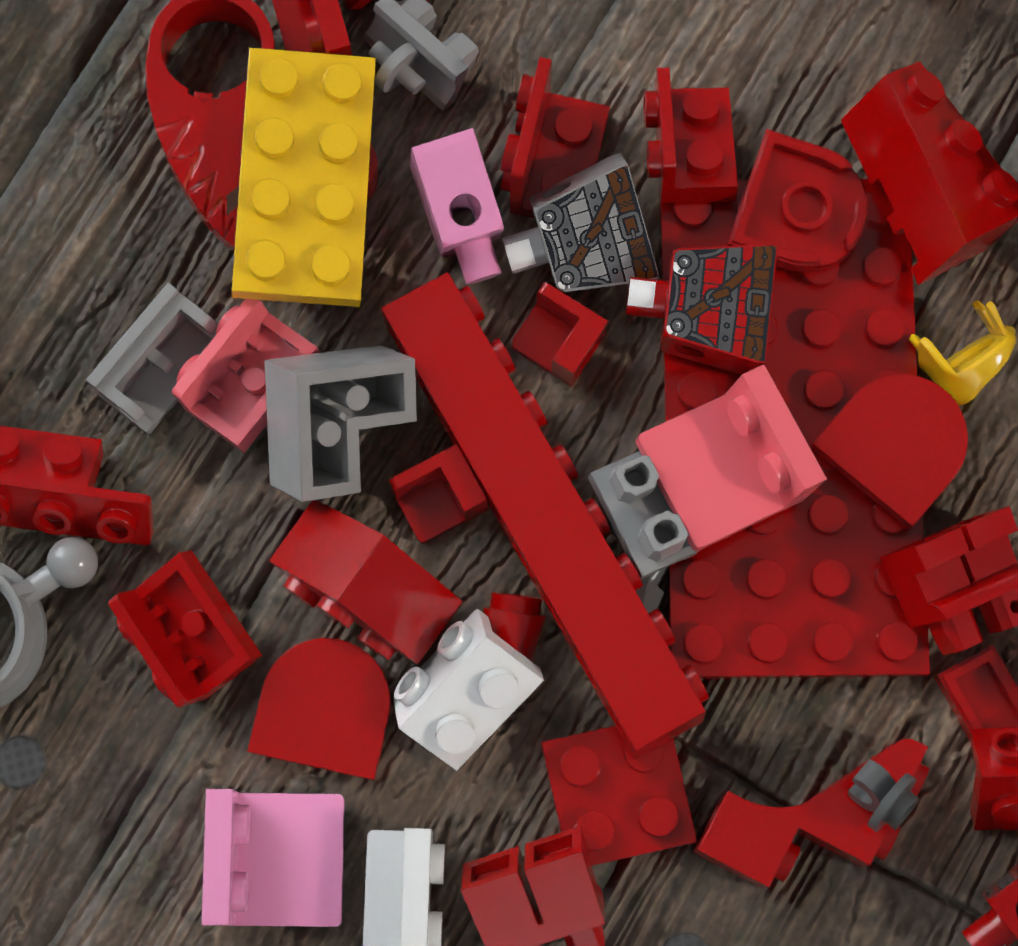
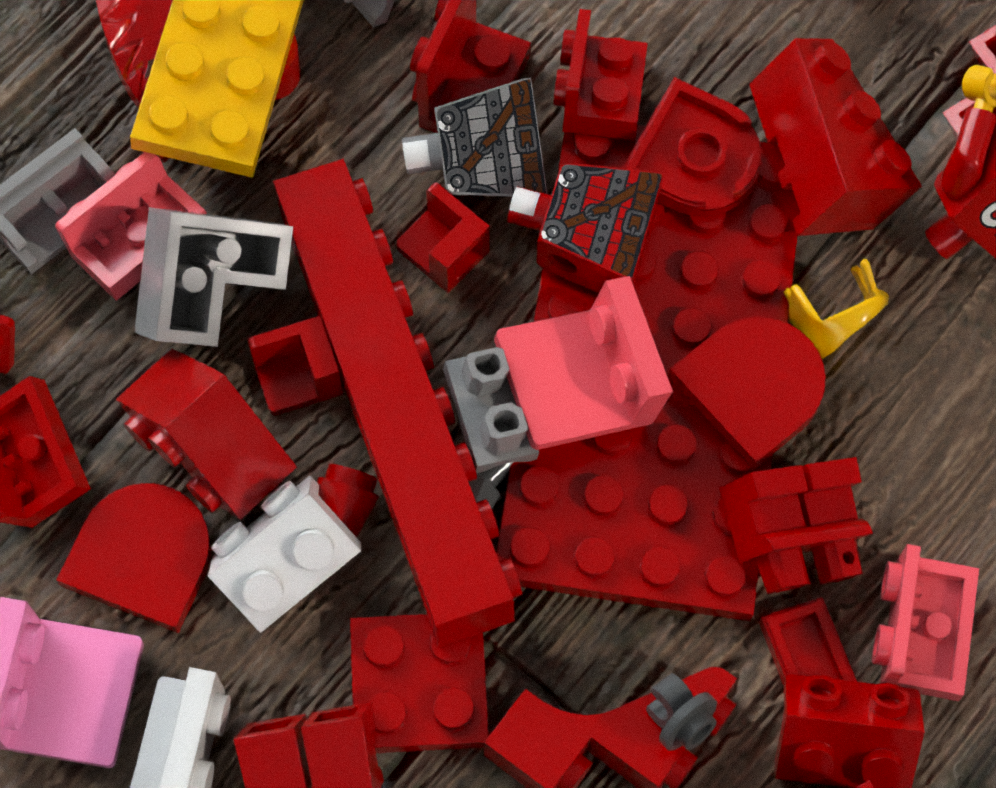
camera: 10 degrees right, 10 degrees down
(452, 177) = (367, 97): bright pink torso -> none

